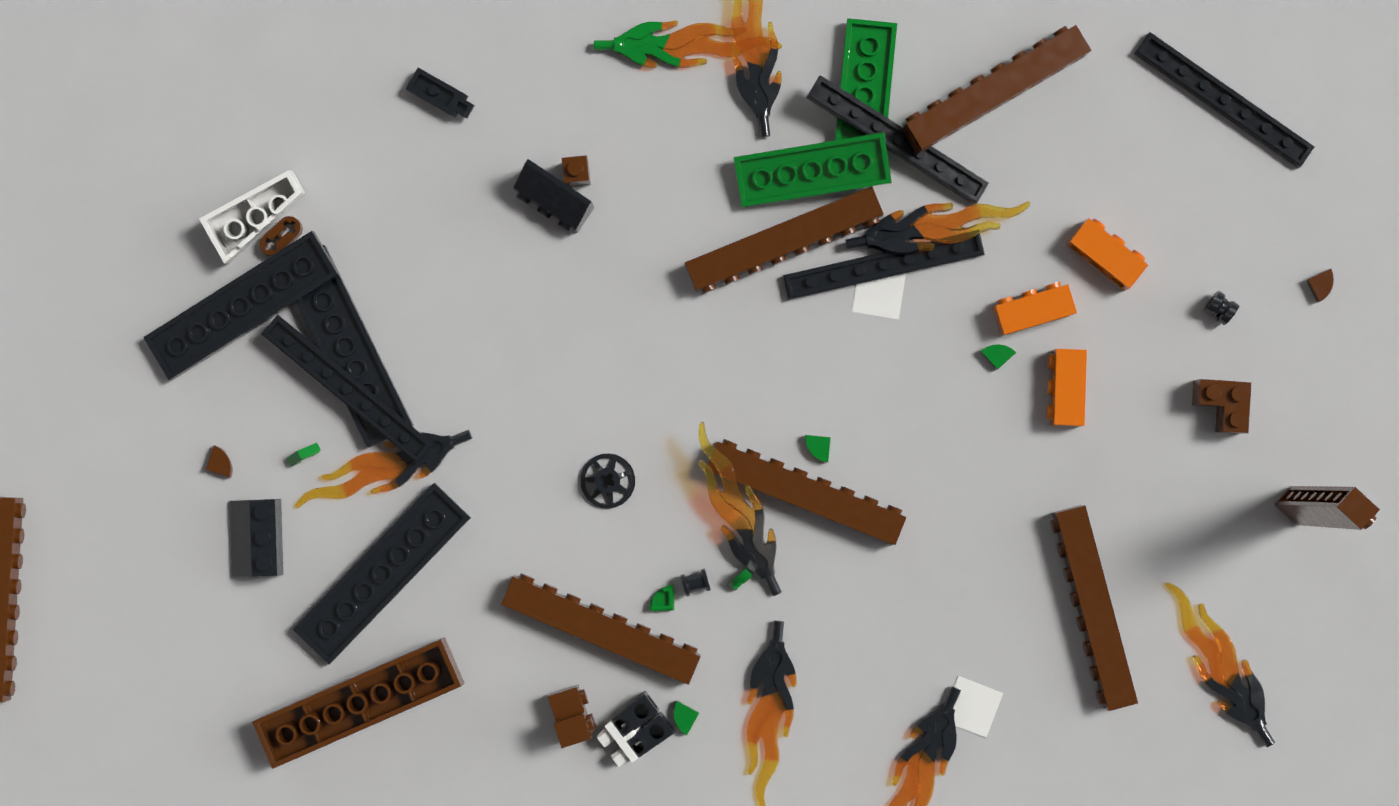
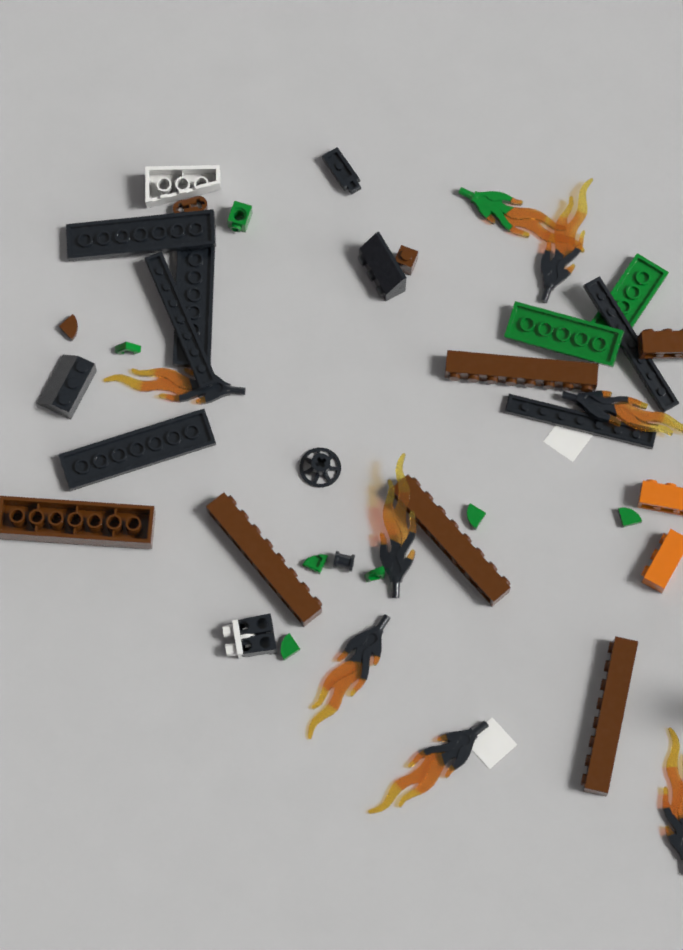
camera: 25 degrees right, 15 degrees down
(339, 211) = (243, 210): none -> green brick
(571, 717) = (212, 603): reddish brown brick -> none

